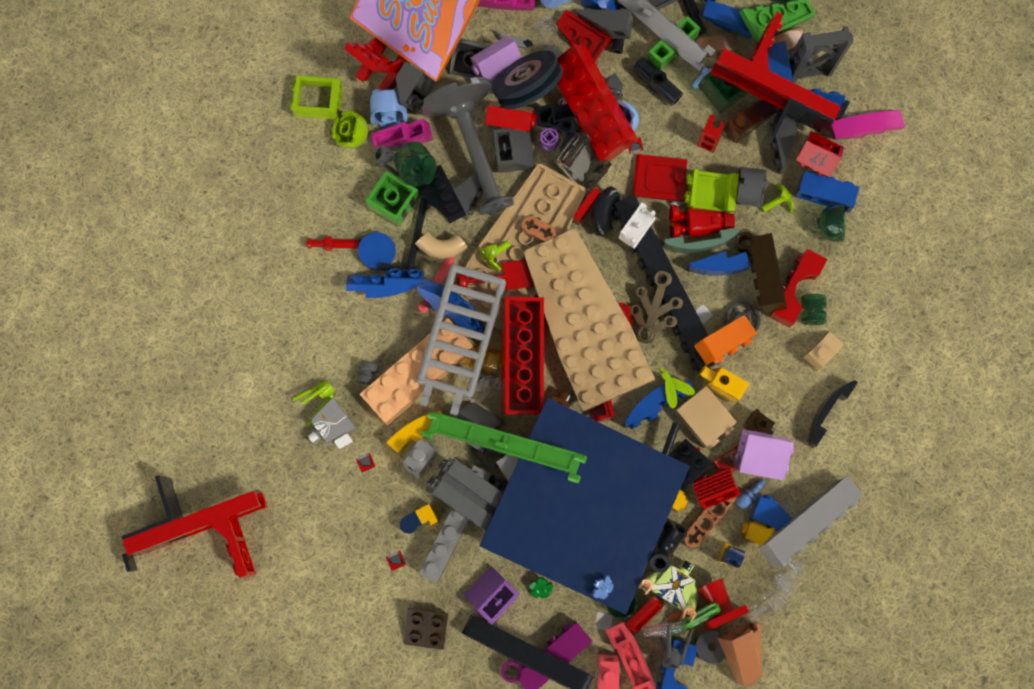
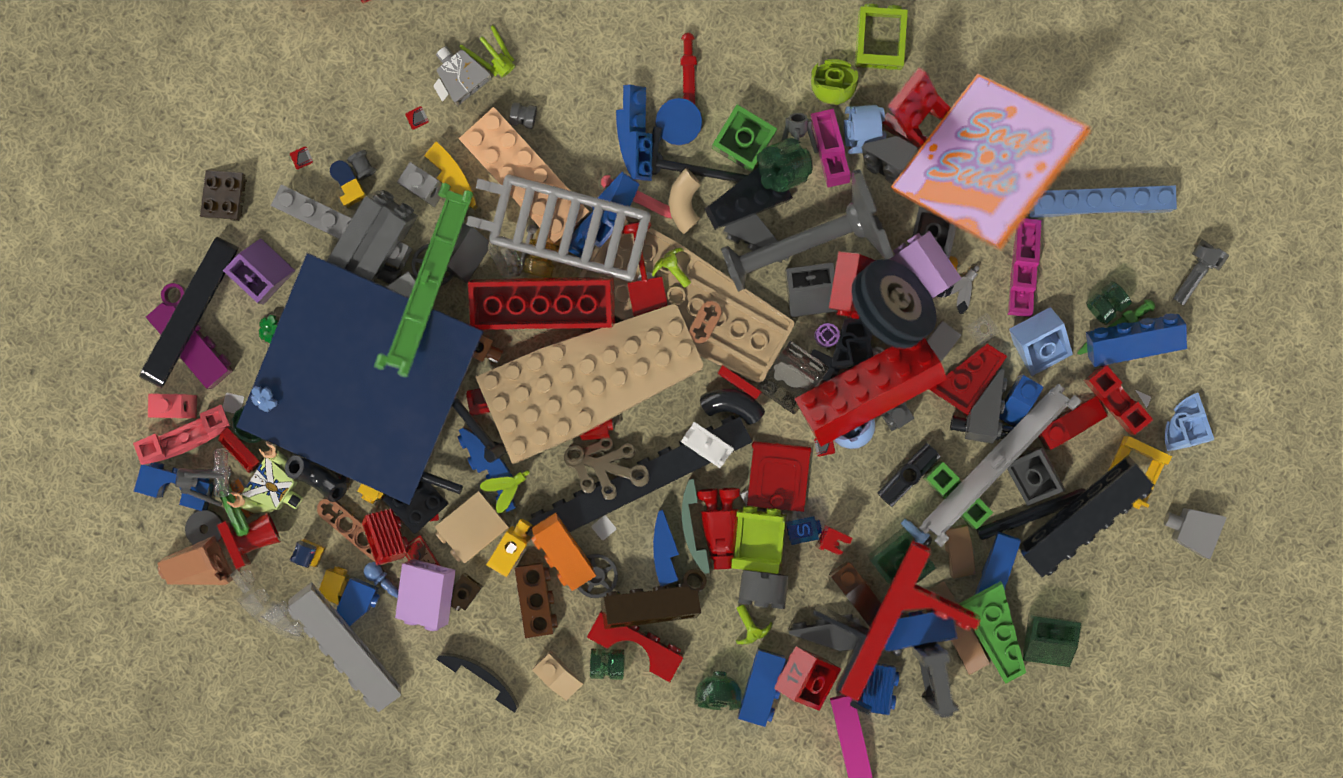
camera: 85 degrees right, 10 degrees up
(403, 507) = (361, 165): none -> dark grey bush
(643, 395) = (492, 449): none -> black bar
(702, 158) = (803, 529): none -> clear blue brick
(774, 369) = (530, 611): none -> reddish brown brick

